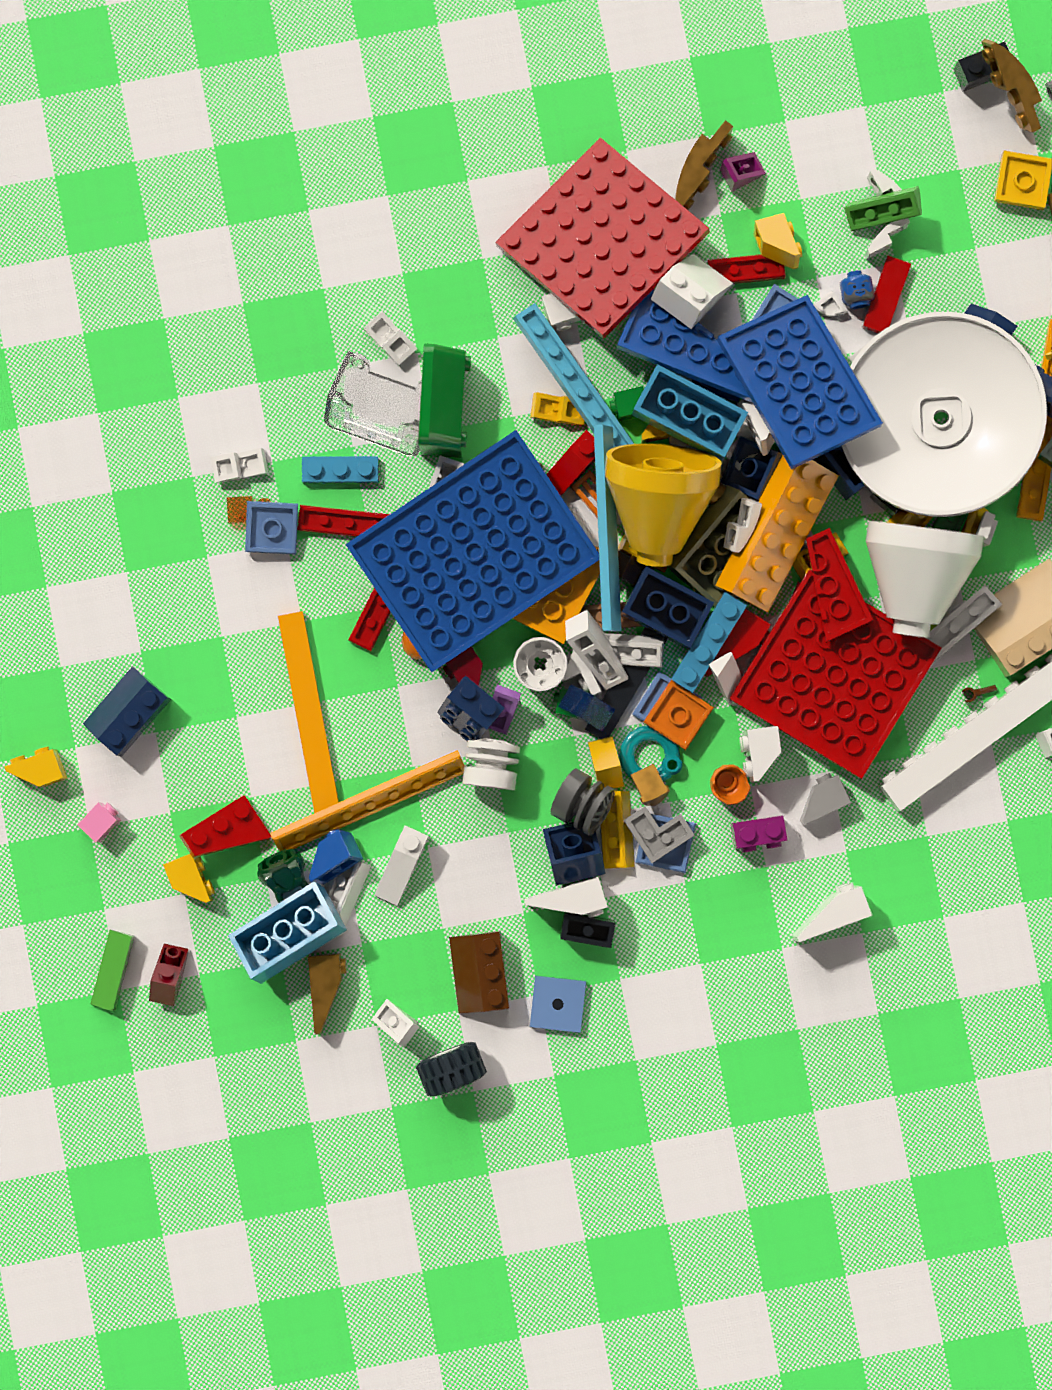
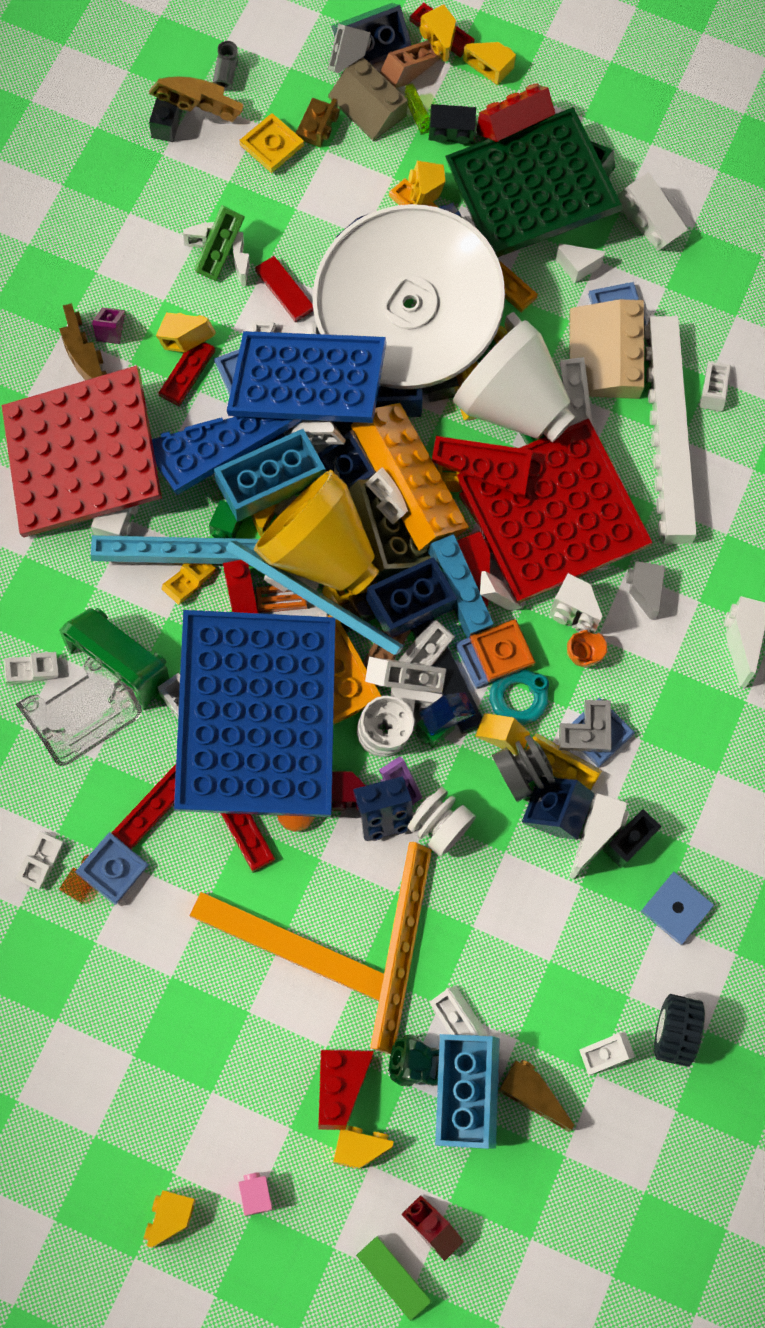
camera: 60 degrees left, 15 degrees down
(126, 712) = (175, 1103): dark blue slope -> none
(334, 856) = (428, 1006): blue slope -> none
(340, 469) = (106, 781): dark azure plate -> none
(401, 865) = (473, 955): white slope -> none
(479, 972) = (609, 953): reddish brown slope -> none
(650, 786) = (545, 709): pearl gold tile -> none
(690, 290) = (174, 414): white slope -> none
(759, 832) = (640, 652): magenta brick -> none
(857, 290) = (265, 304): blue head -> none
(978, 692) = (638, 424): reddish brown hand -> none

